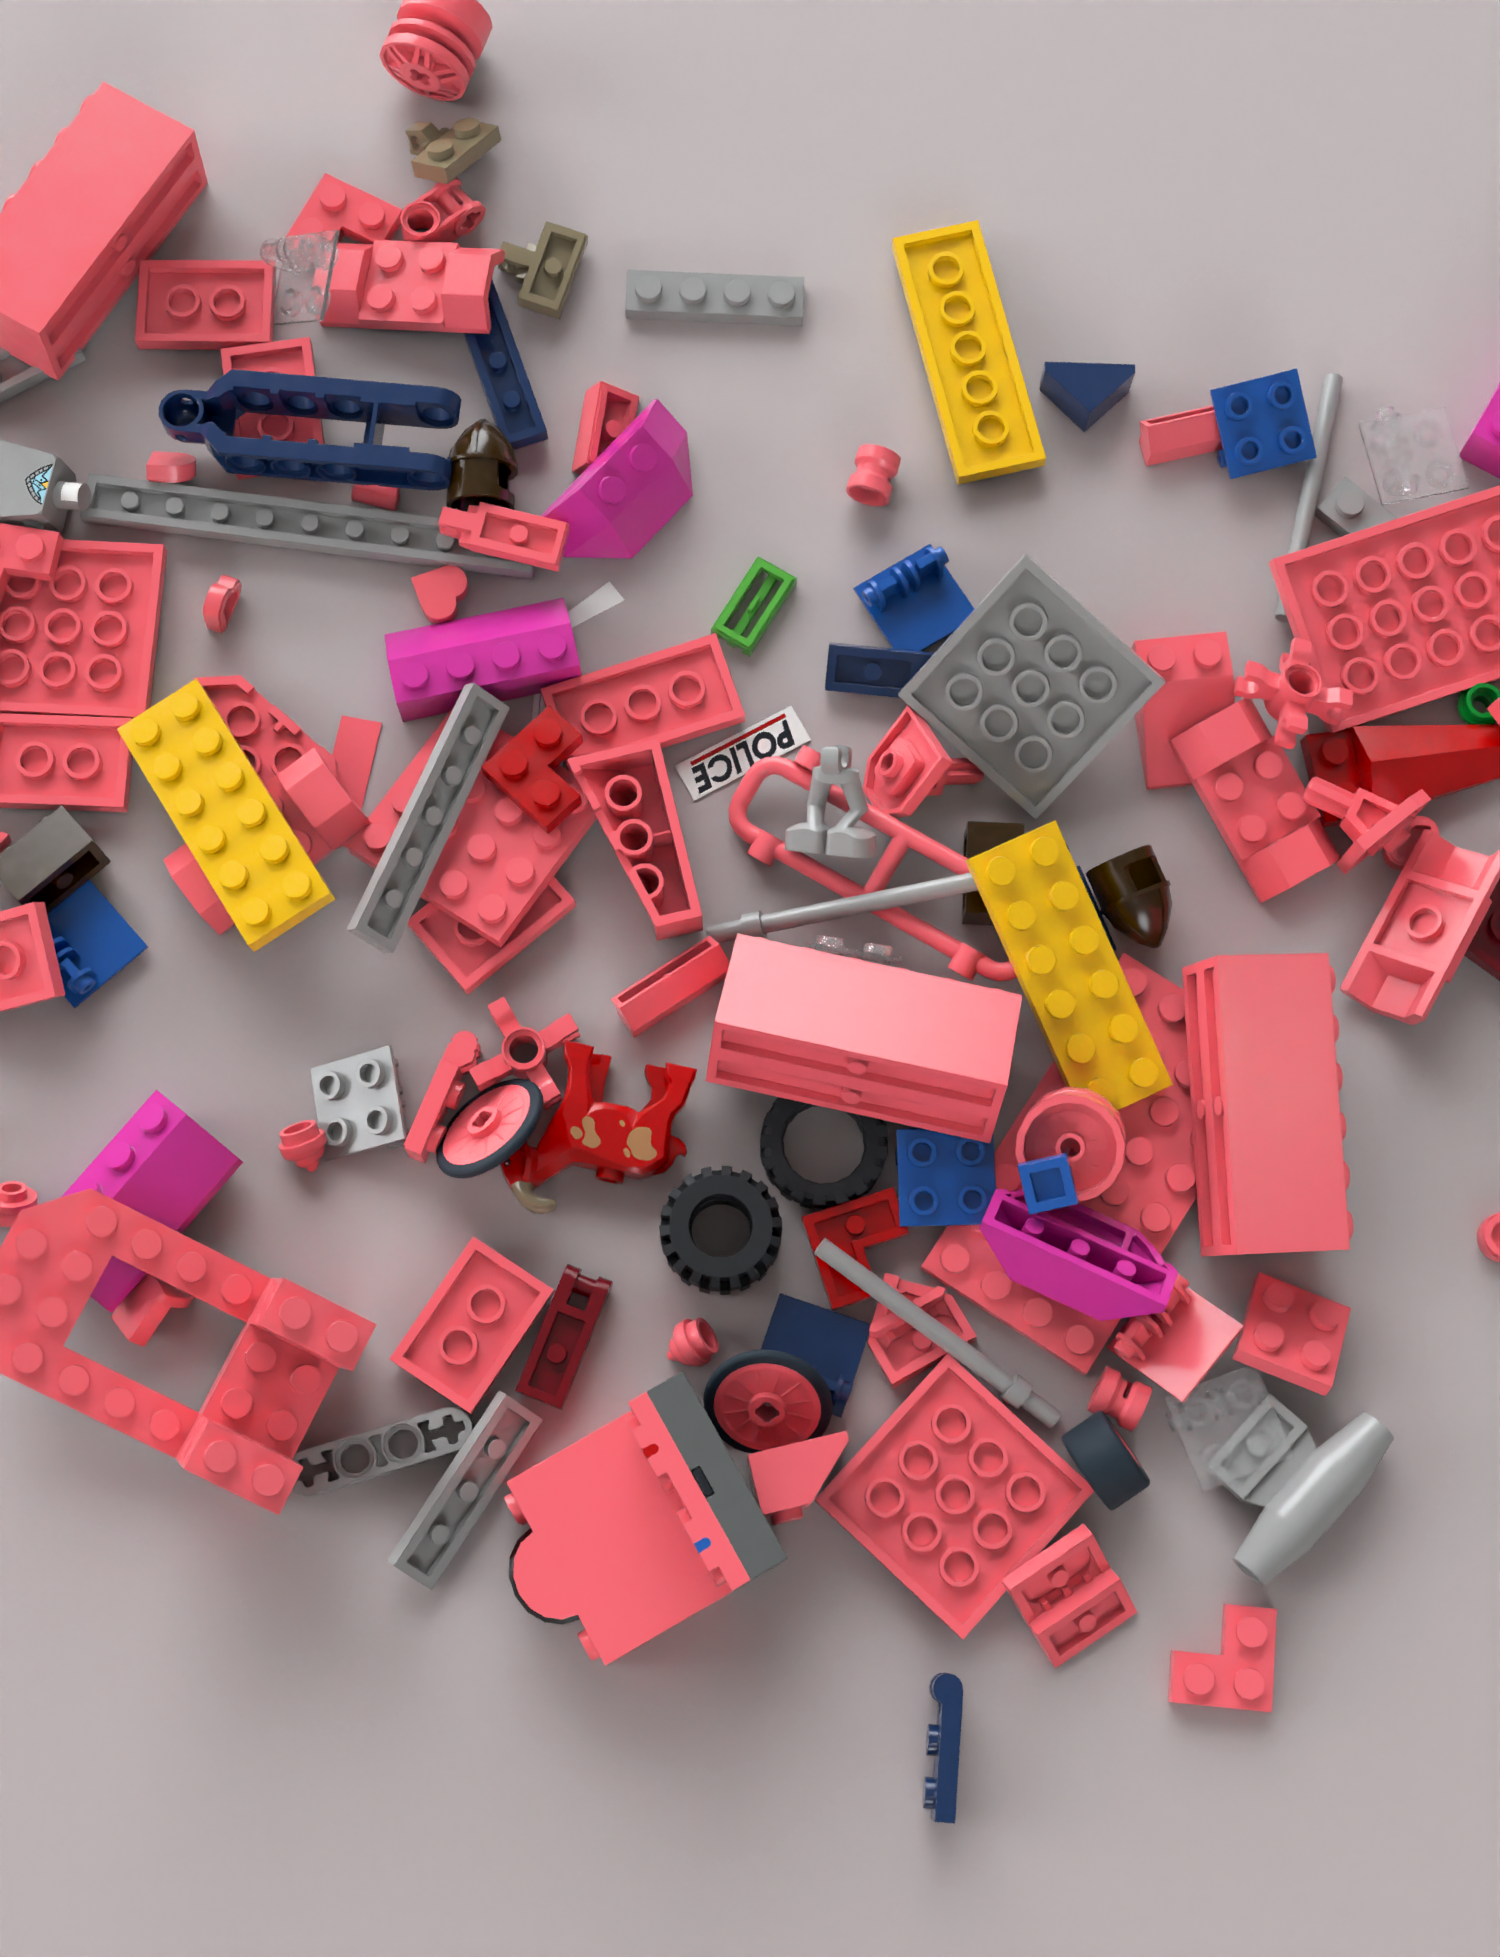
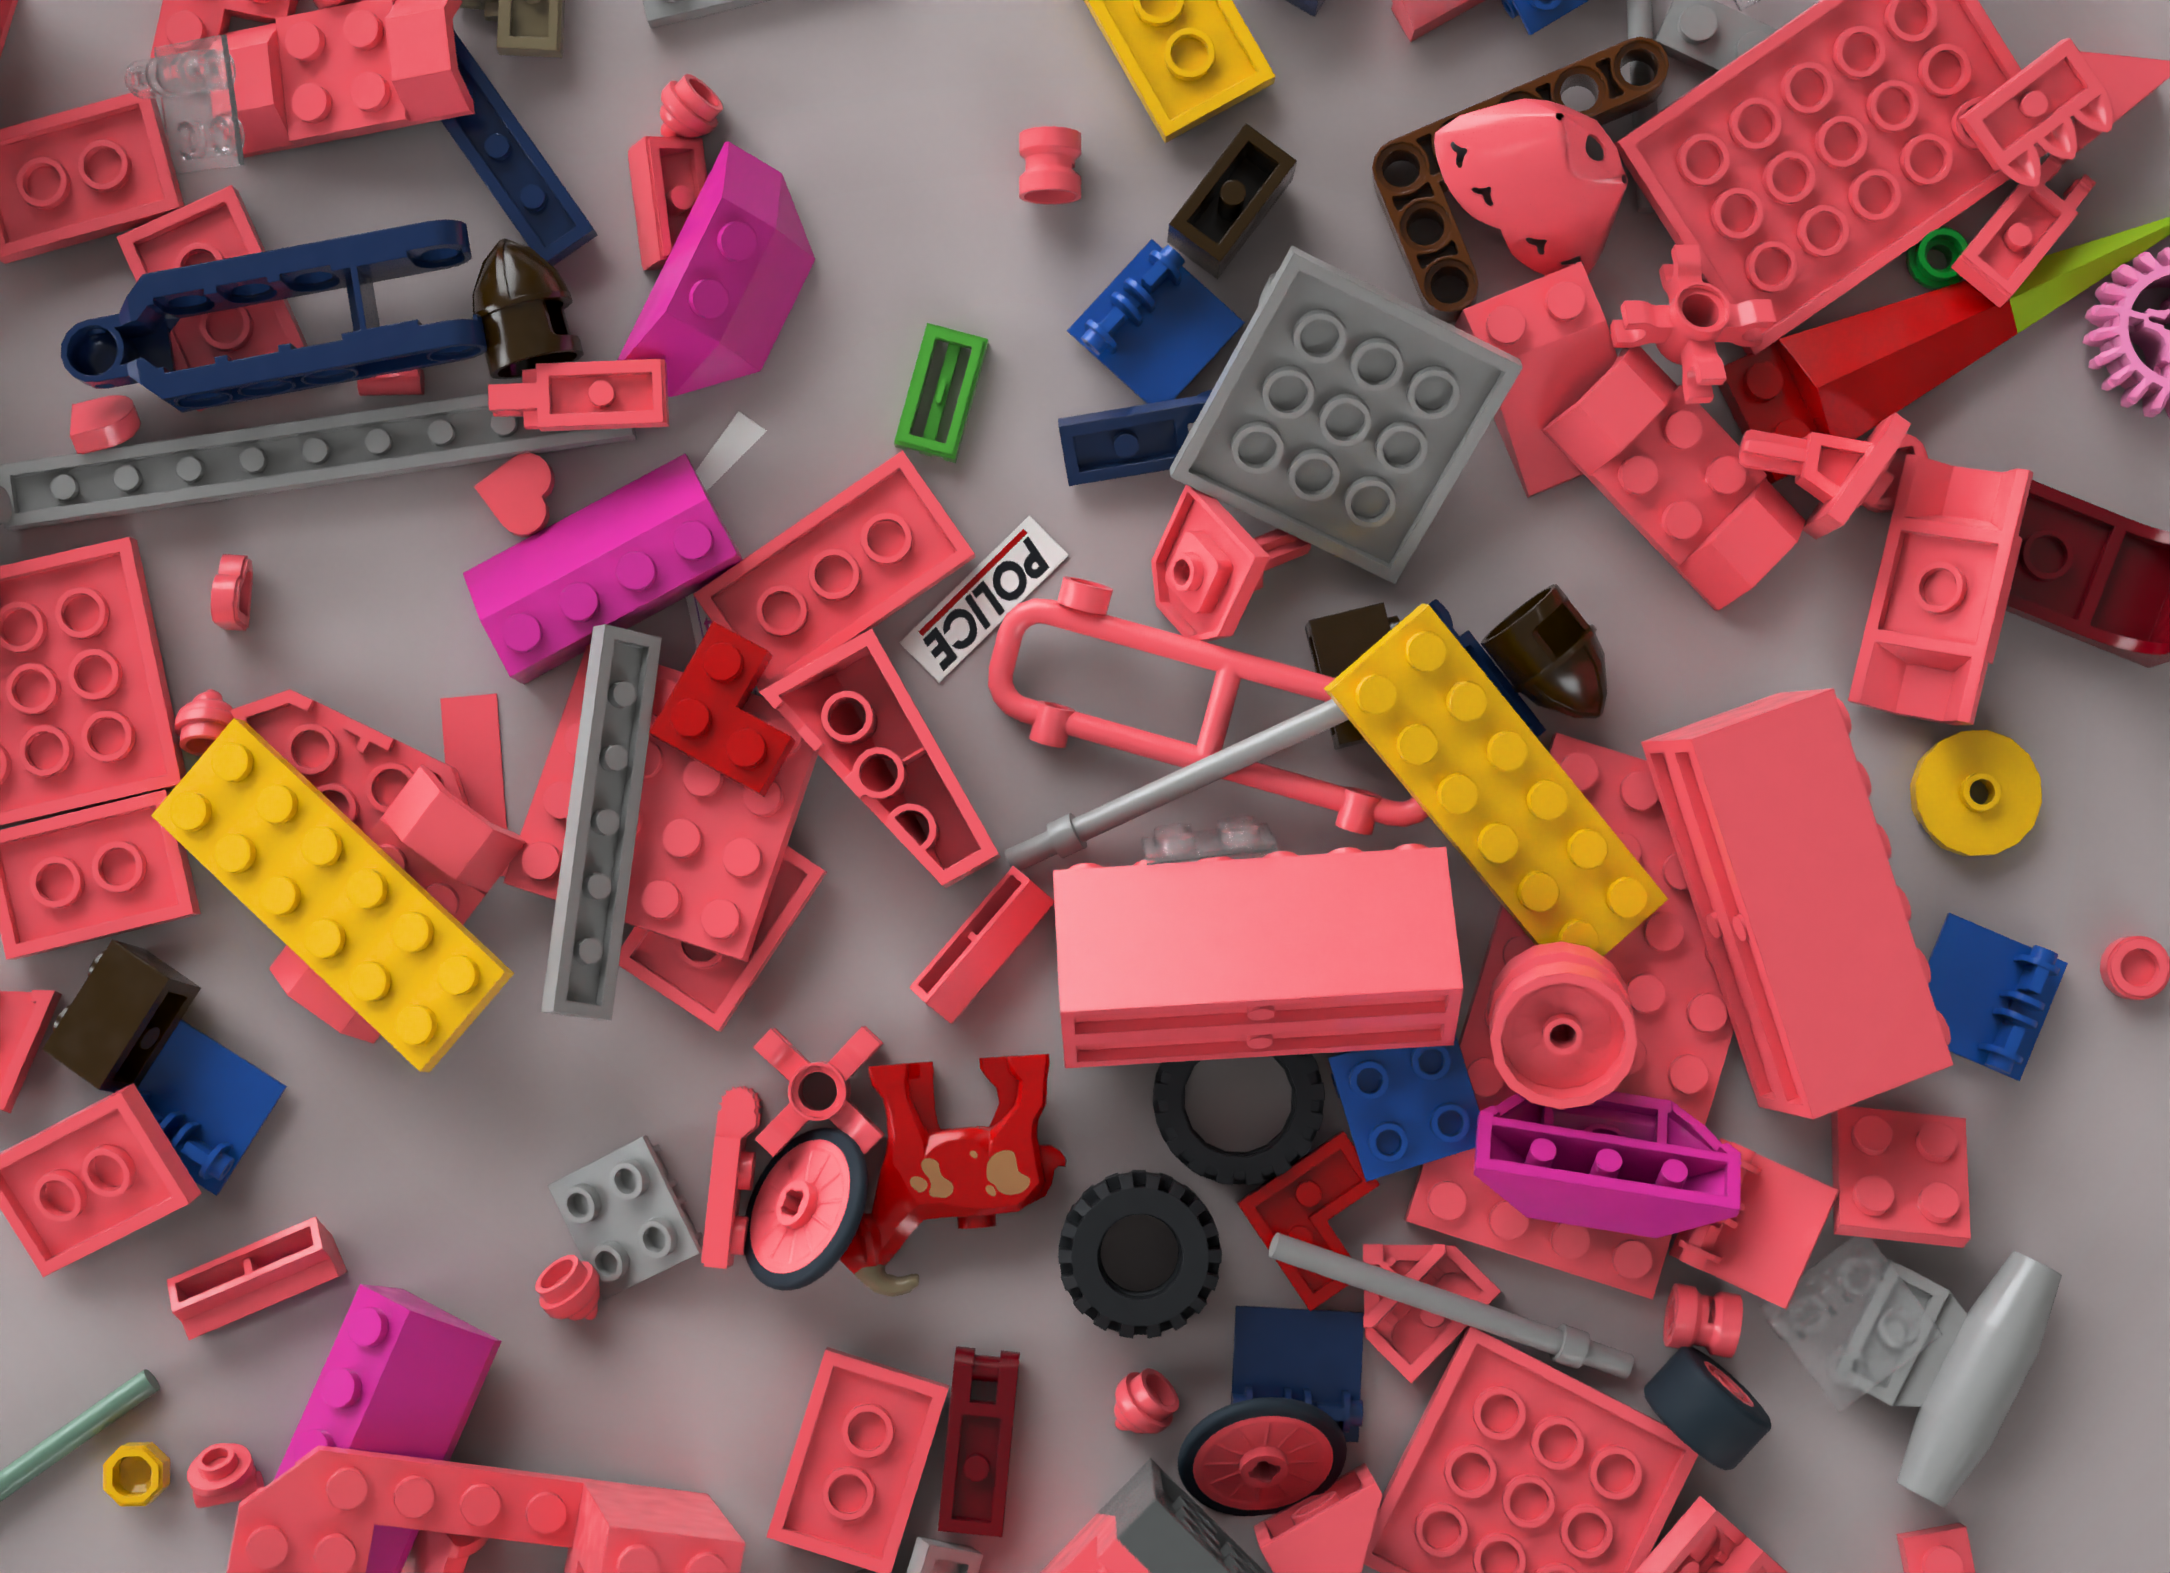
camera: 10 degrees left, 10 degrees up
(82, 1072) = (254, 1277): none -> coral piece
(170, 679) = (202, 721): none -> coral plate
(635, 373) = (688, 108): none -> coral plate
(844, 838) = (1120, 700): light grey piece -> none
(992, 529) = (1231, 201): none -> dark brown brick
(1048, 1183) = (1547, 1093): blue tile -> none
(1189, 547) = (1425, 196): none -> reddish brown beam
(1210, 570) = (1537, 179): none -> coral piece
(1392, 1225) = (1992, 993): none -> blue hinge
(1399, 1096) = (1943, 793): none -> yellow plate

